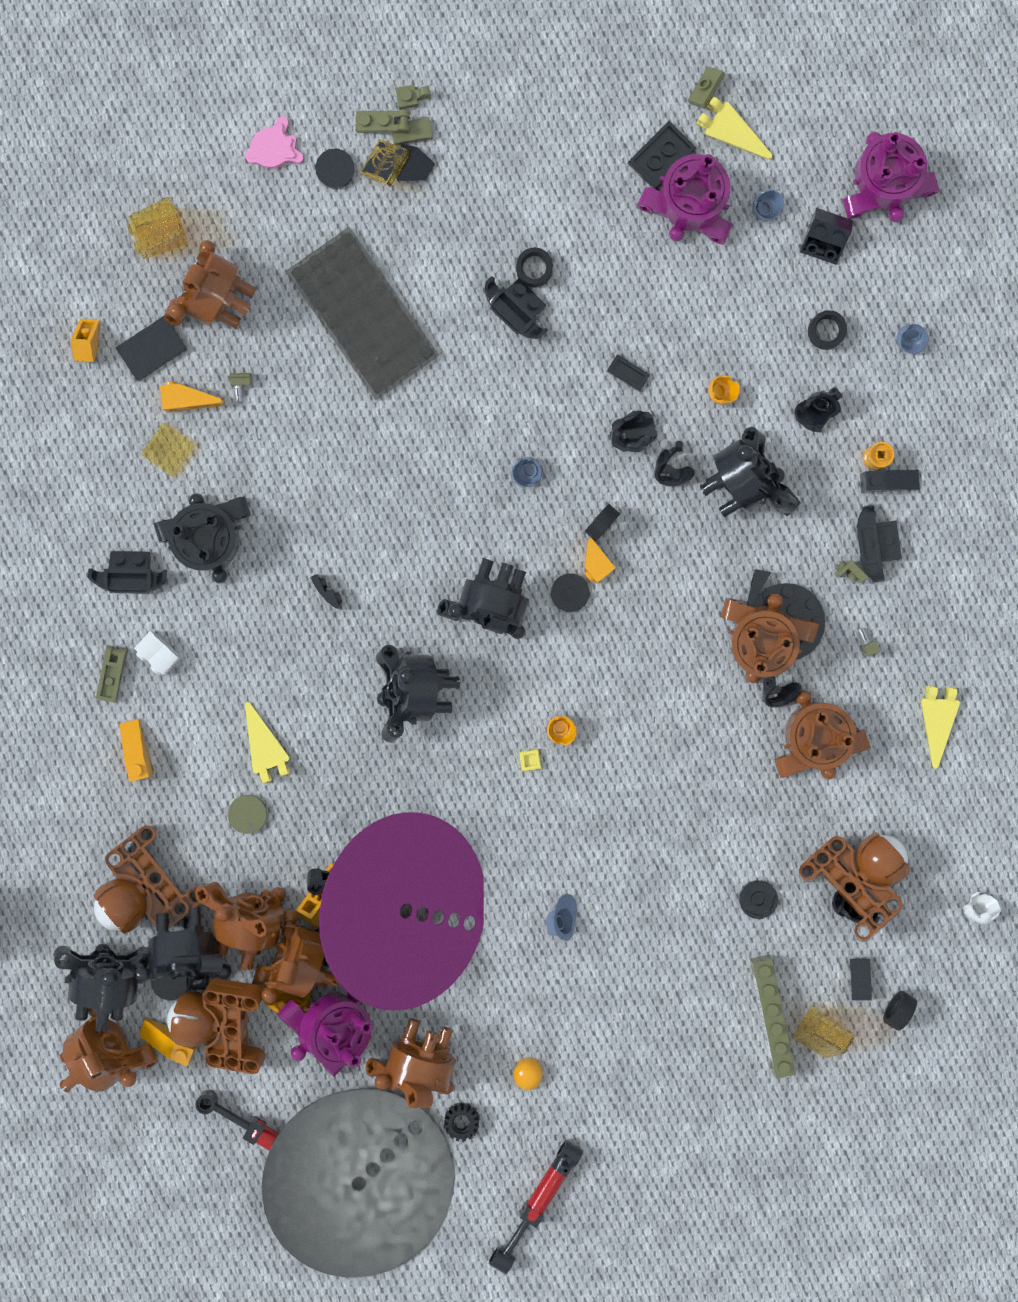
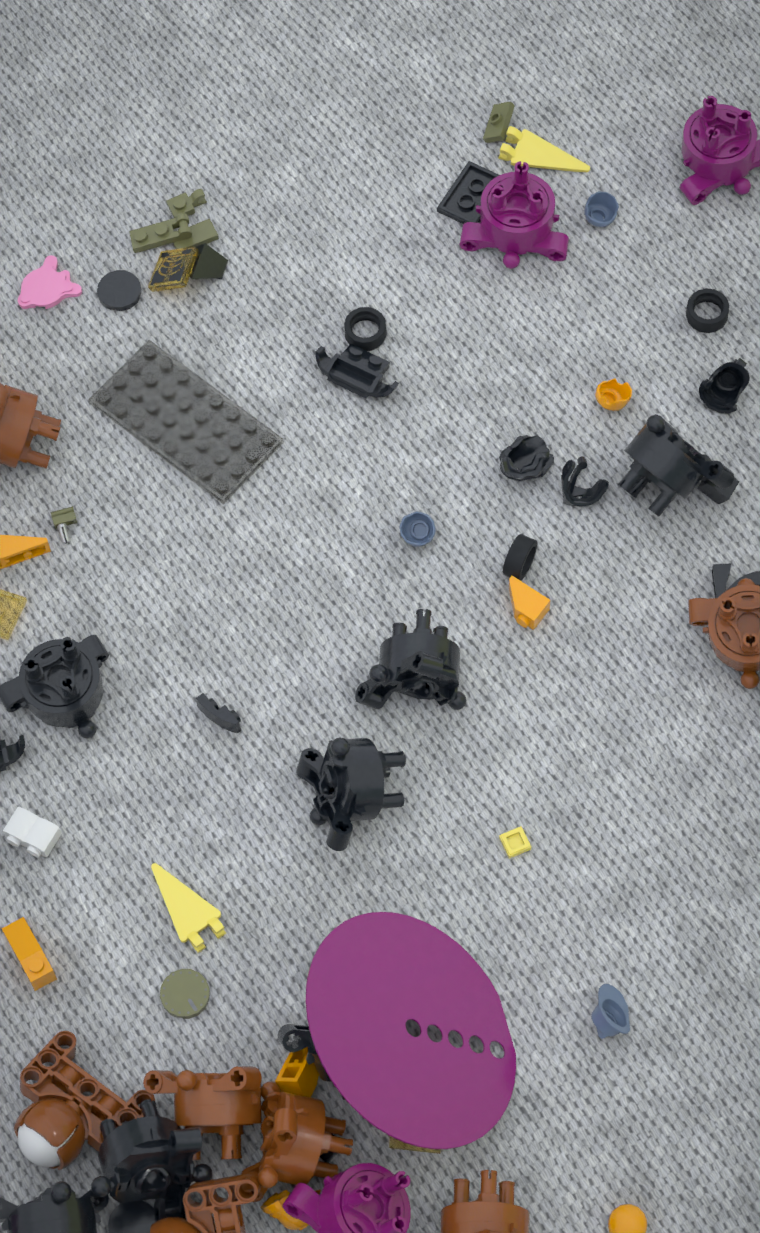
camera: 20 degrees left, 25 degrees down
(562, 730) = (542, 794): light orange hair -> none
(563, 593) = (512, 649): black tile -> none
(628, 373) = (501, 406): black tile -> none
(826, 236) = (674, 224): black slope -> none

